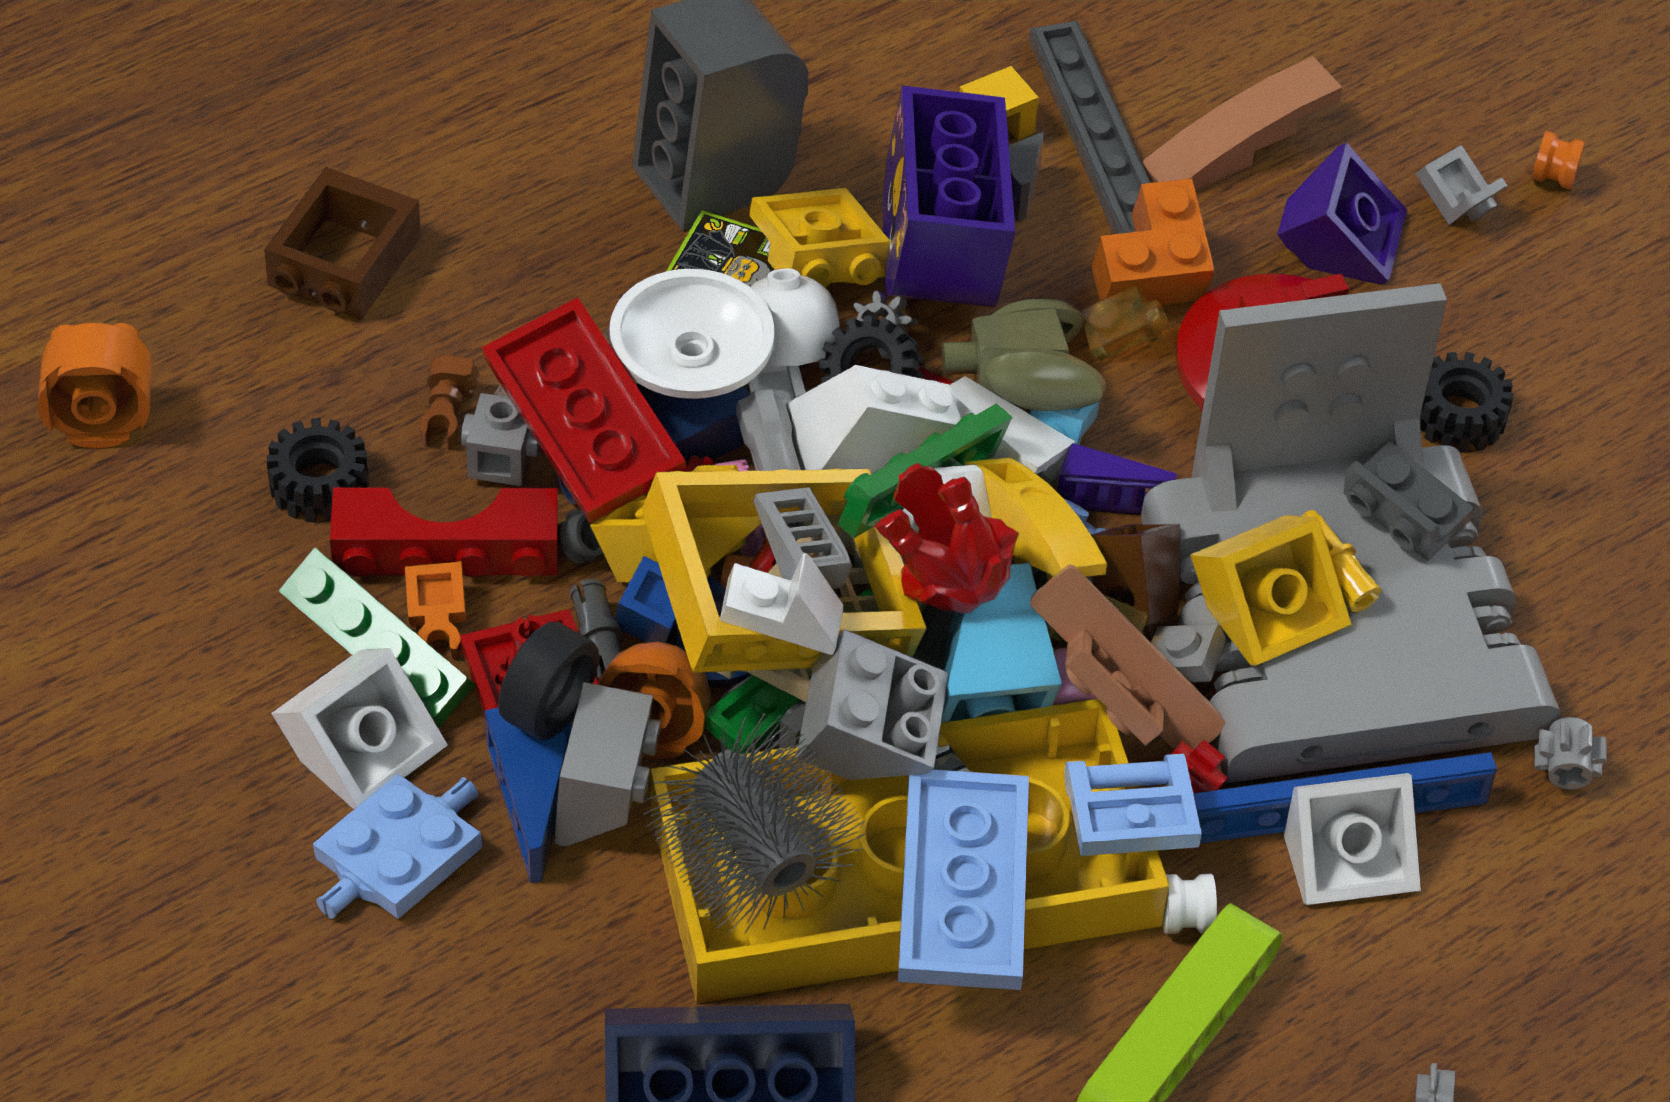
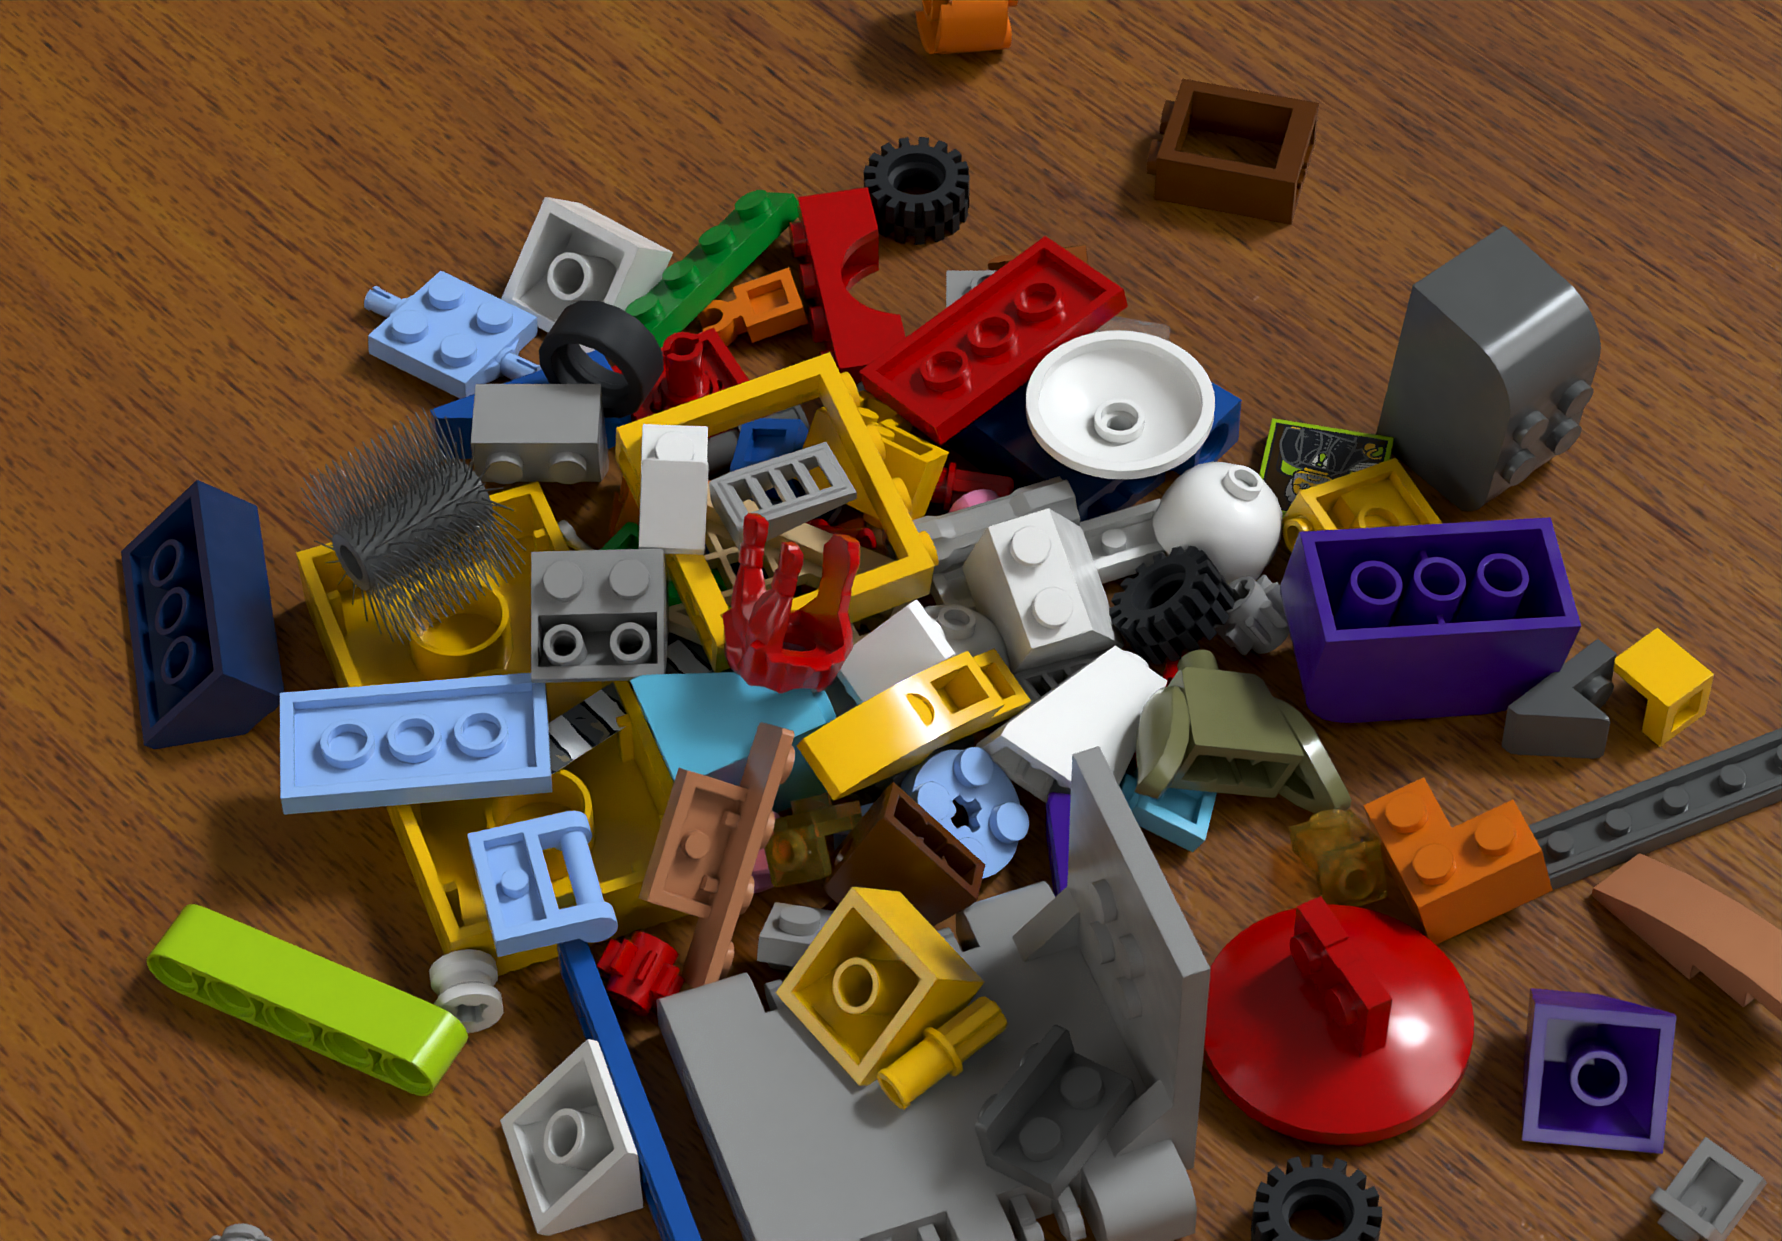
camera: 85 degrees right, 0 degrees up
(972, 439) = (895, 580): green plate -> none

